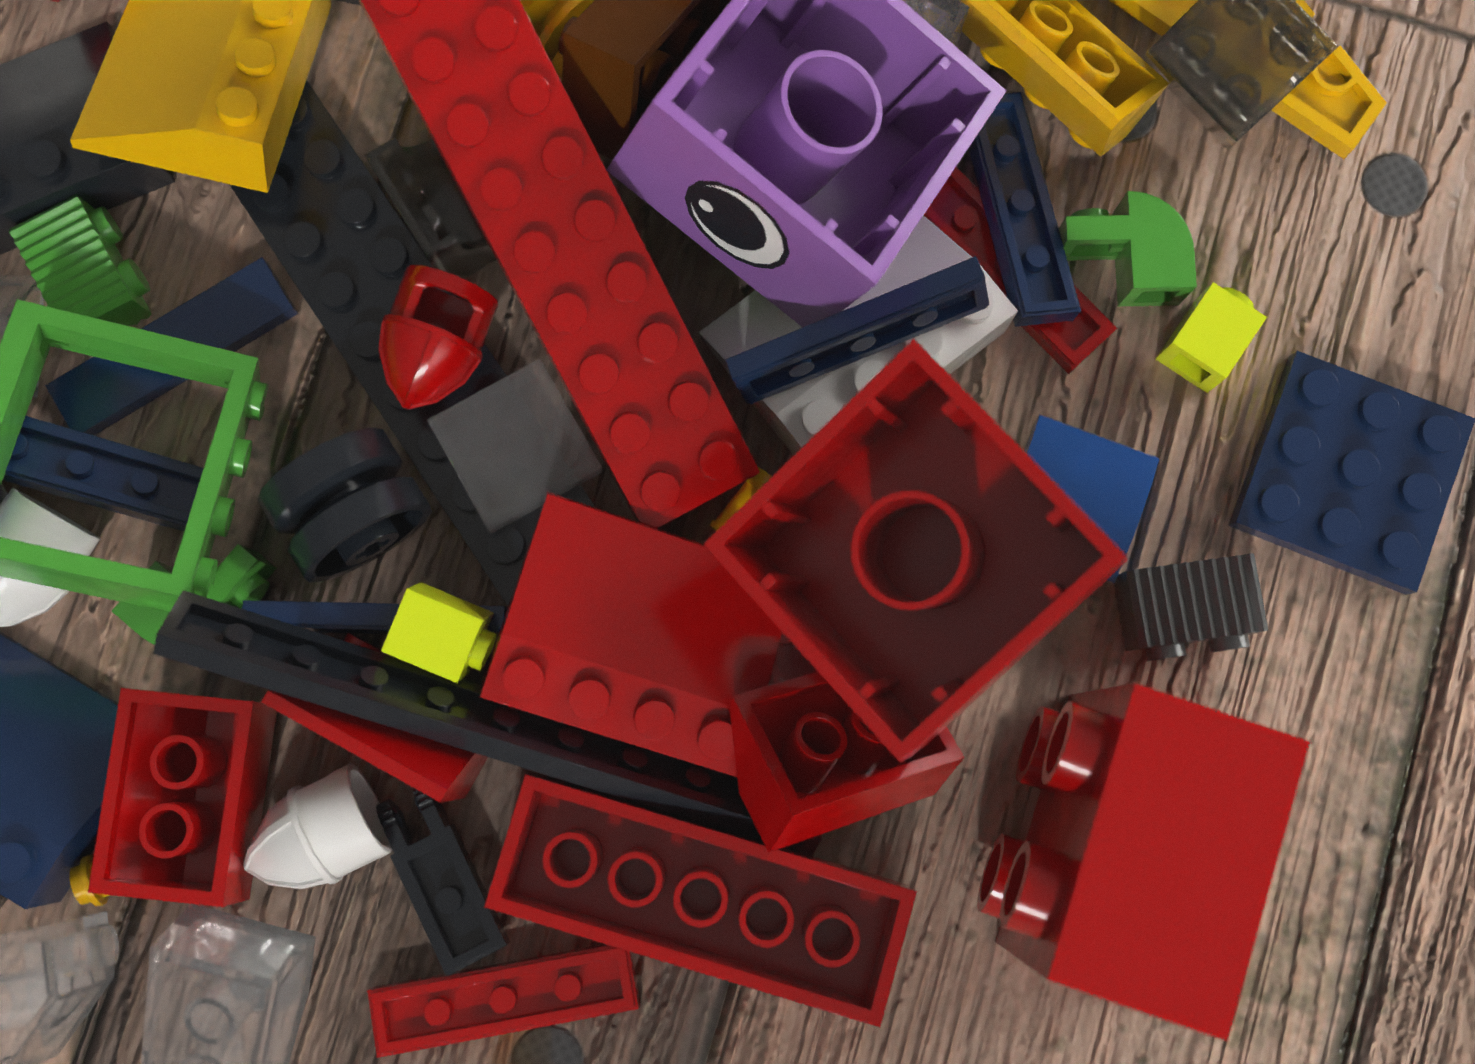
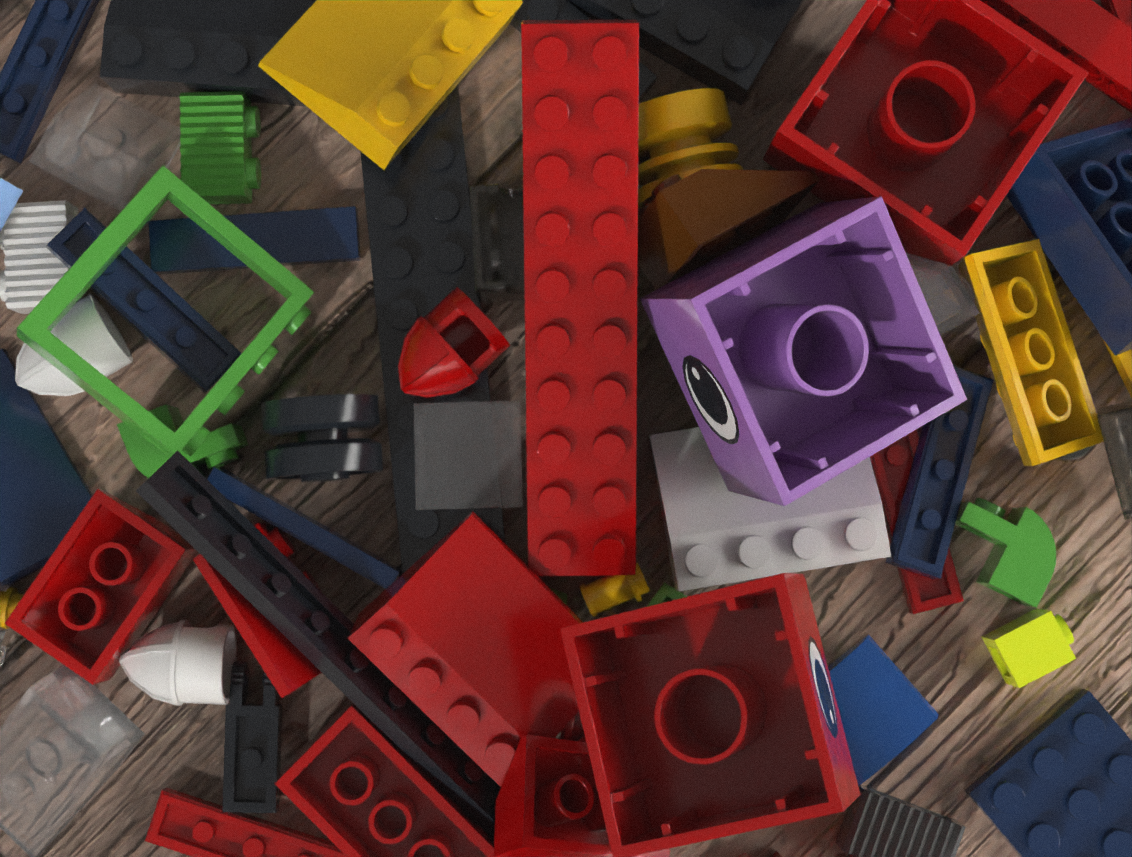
camera: 30 degrees right, 5 degrees up
(440, 633) = (344, 573): neon yellow brick -> none
(860, 331) = (761, 516): dark blue tile -> none

